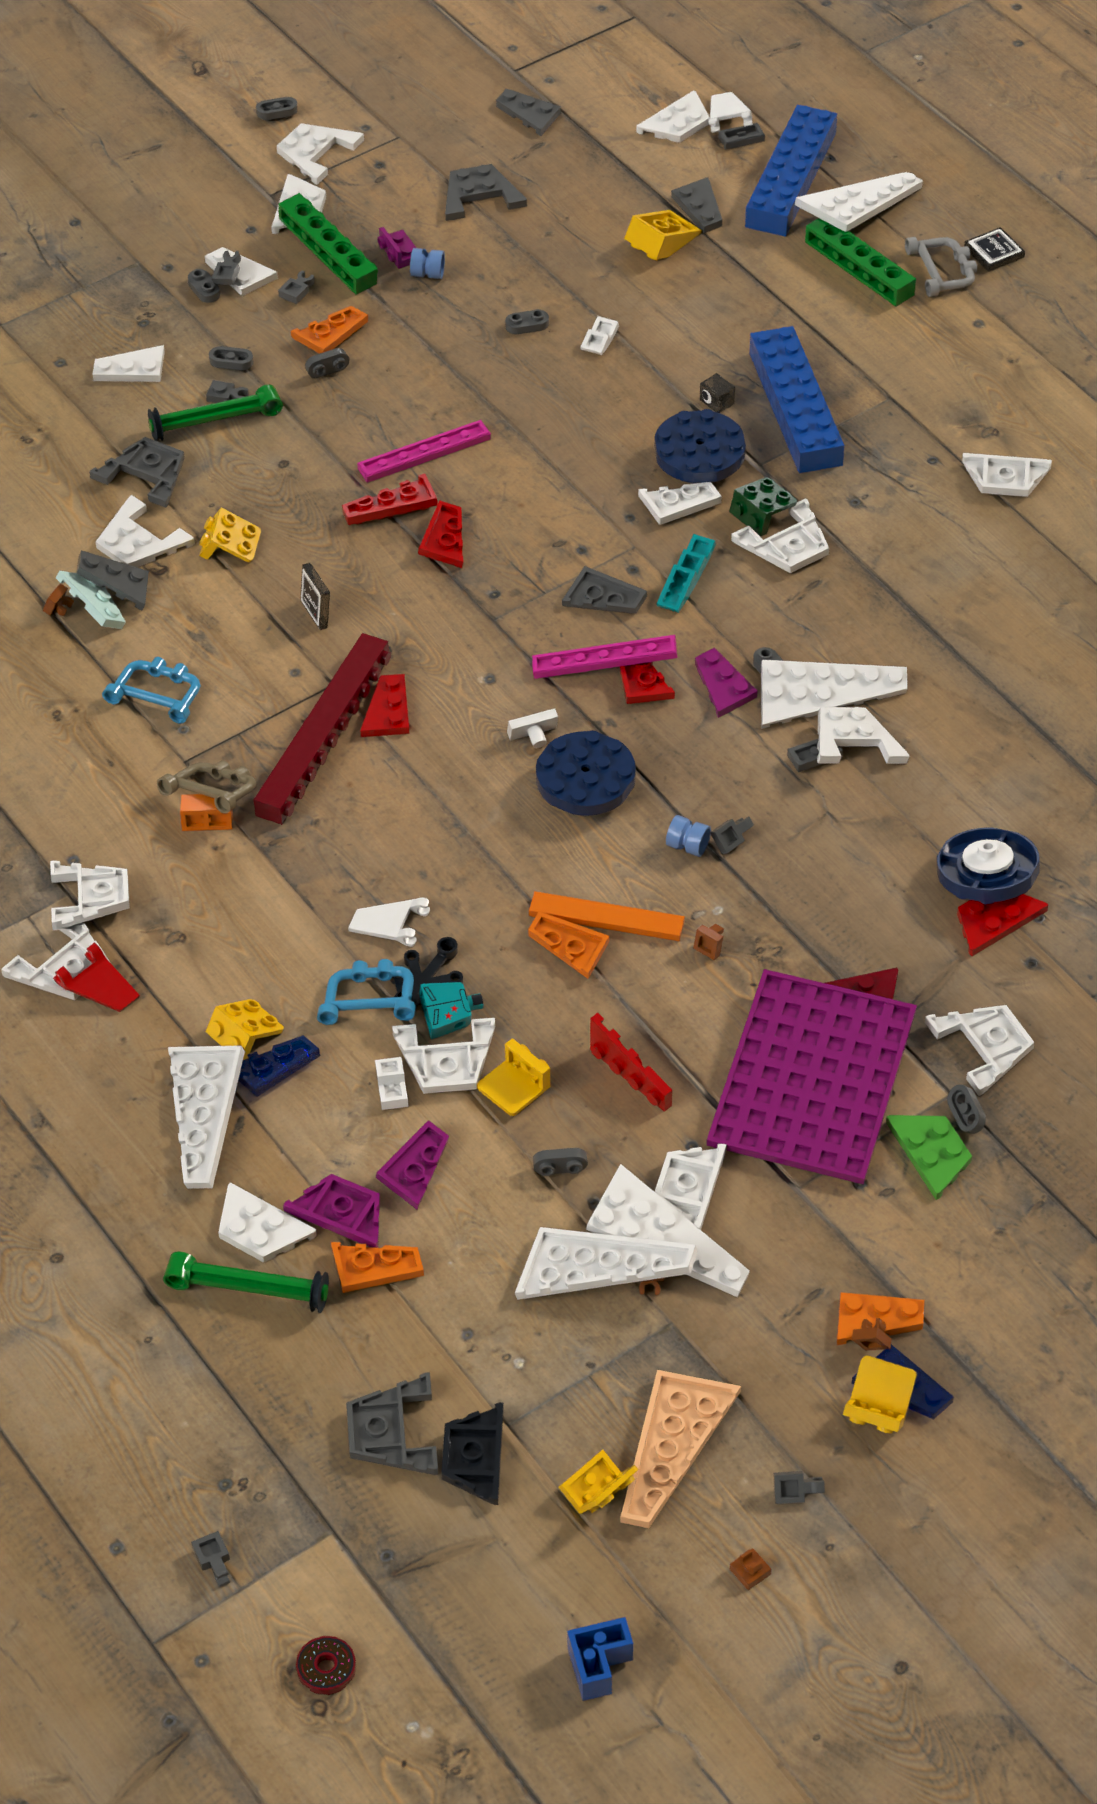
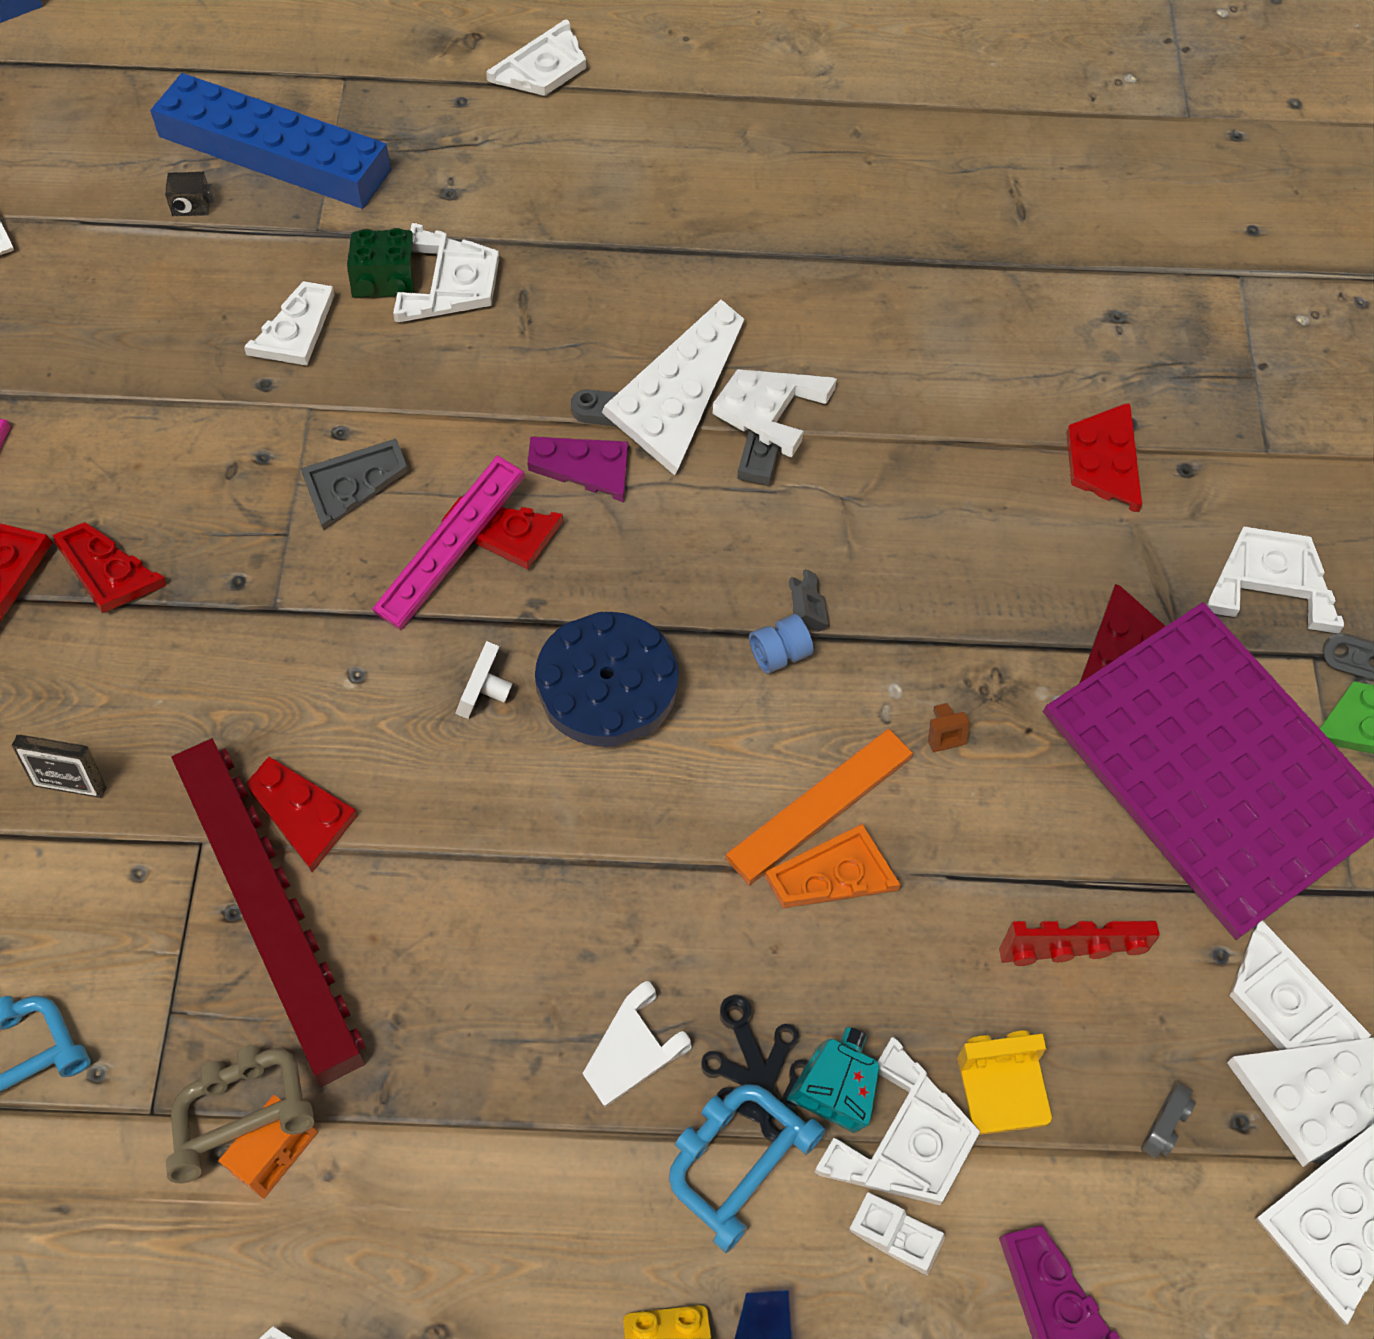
camera: 55 degrees left, 10 degrees up
(686, 573) = (402, 389): teal slope -> none
(699, 446) = (249, 255): dark blue piece -> none
(988, 865) = (1050, 413): dark blue piece -> none

